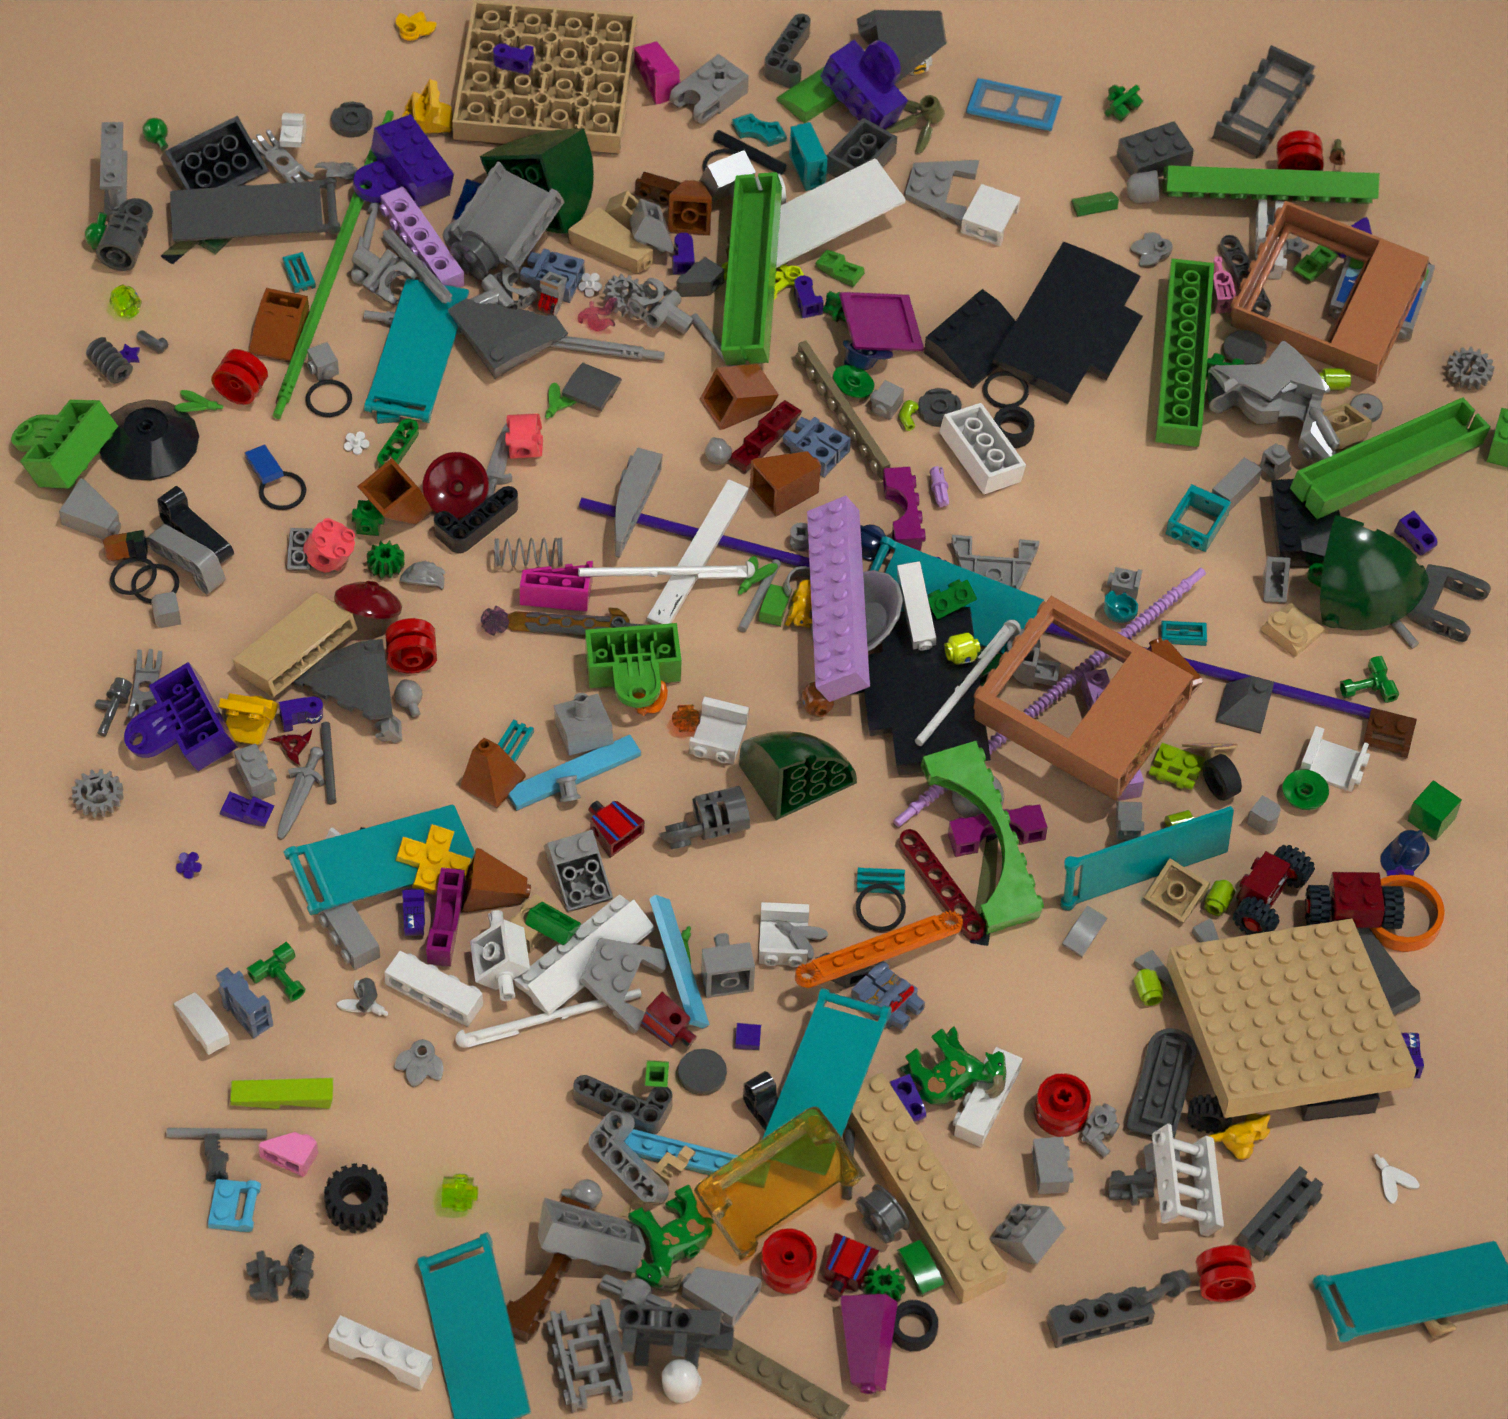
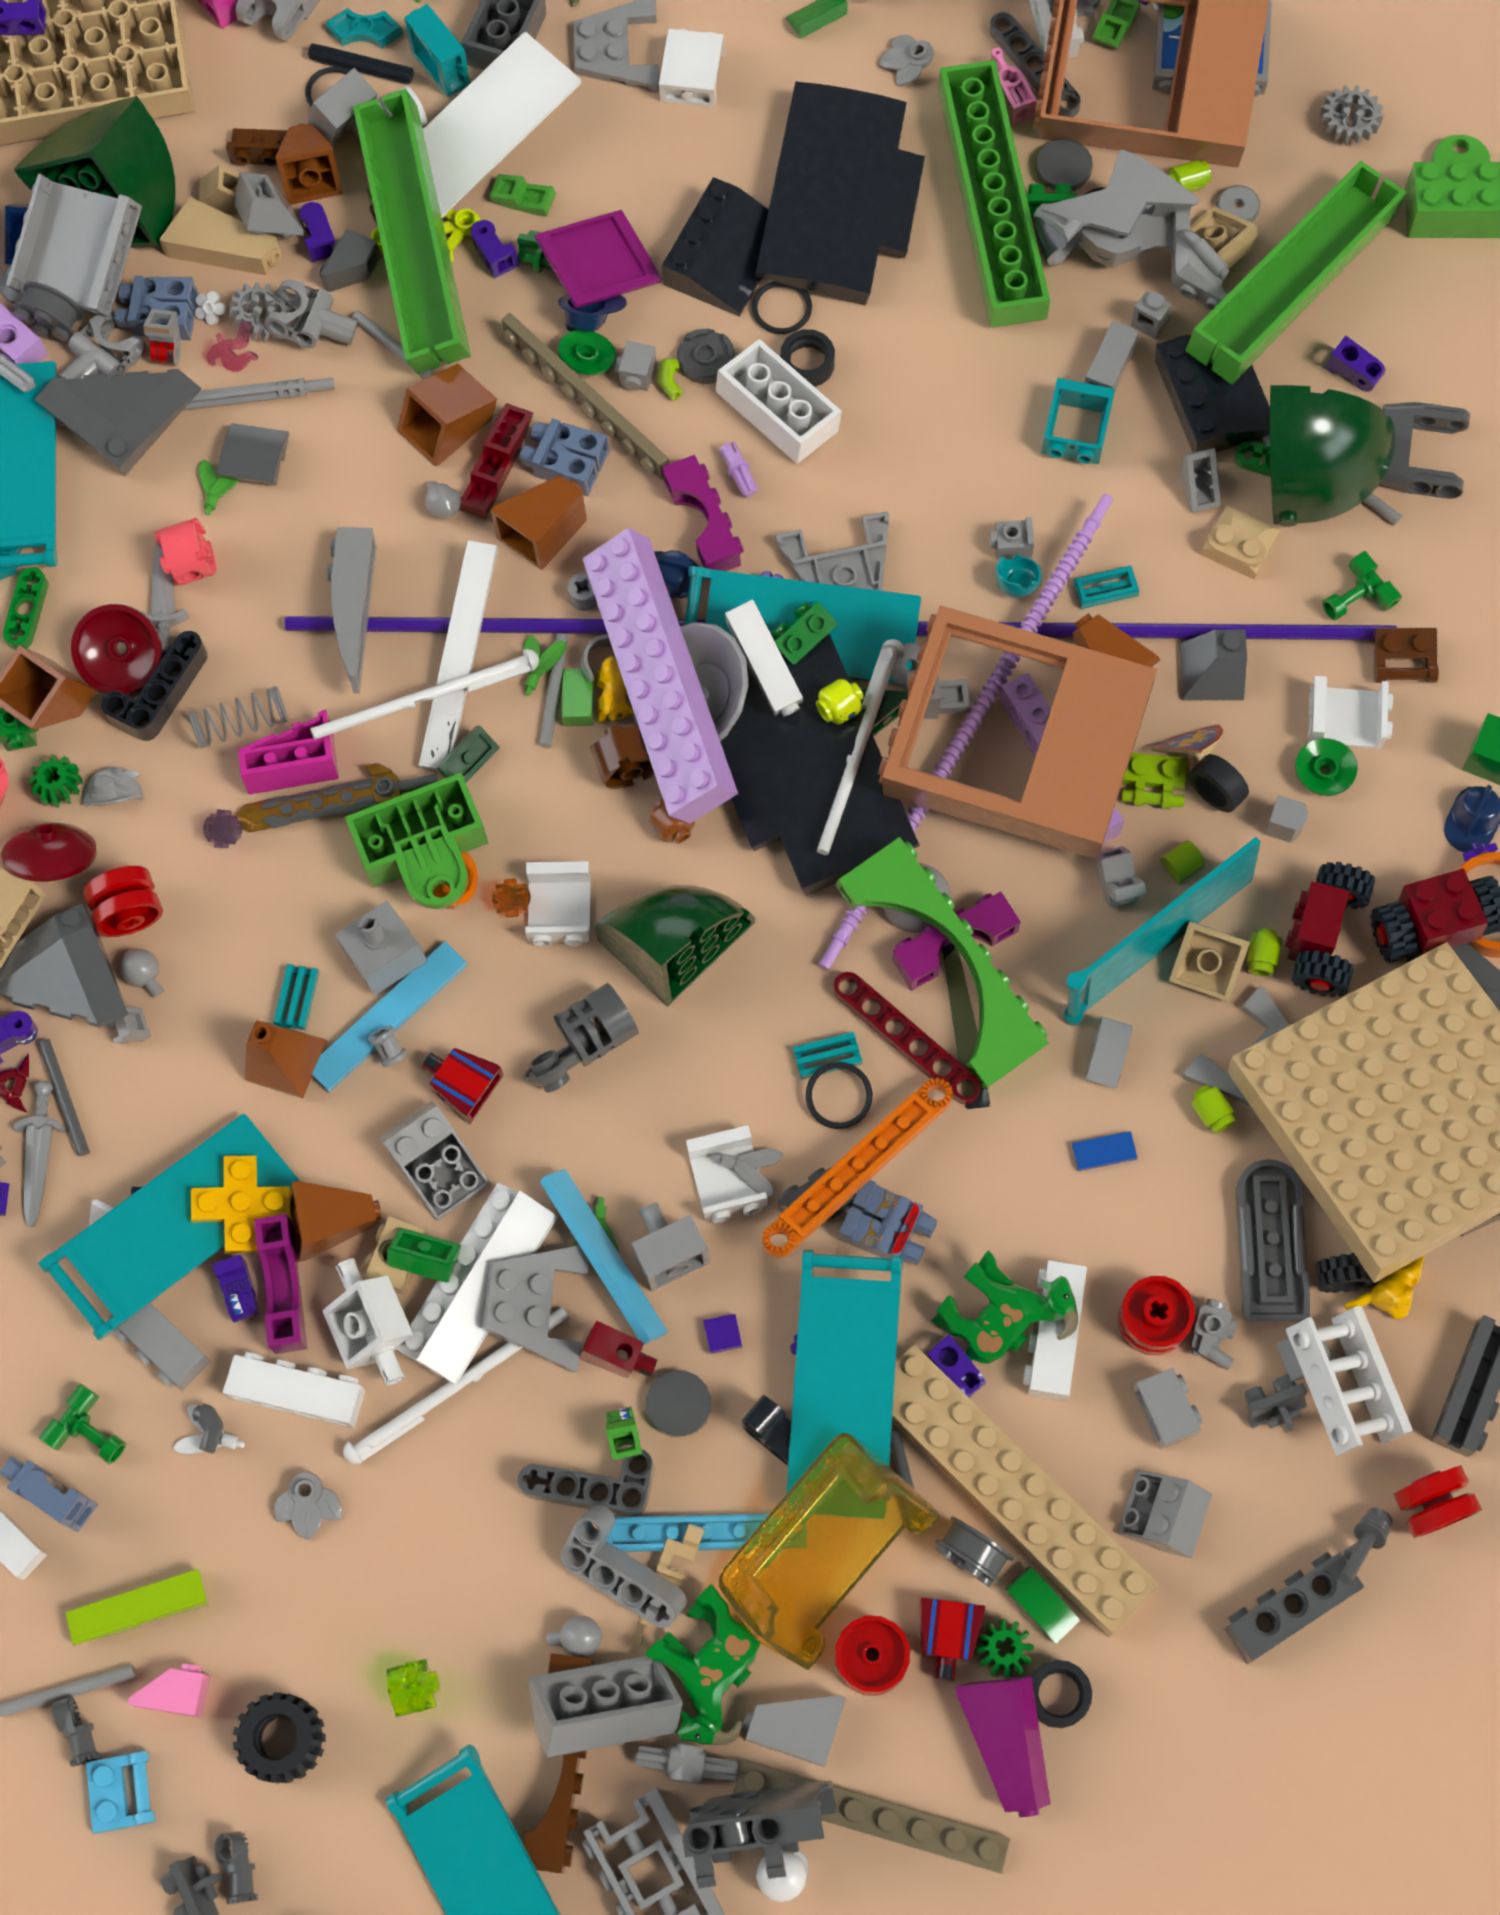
camera: 10 degrees left, 15 degrees up
(687, 618) = (468, 754): none -> dark green plate
(794, 647) = (621, 757): none -> reddish brown brick
(1061, 995) = (1104, 1151): none -> blue piece

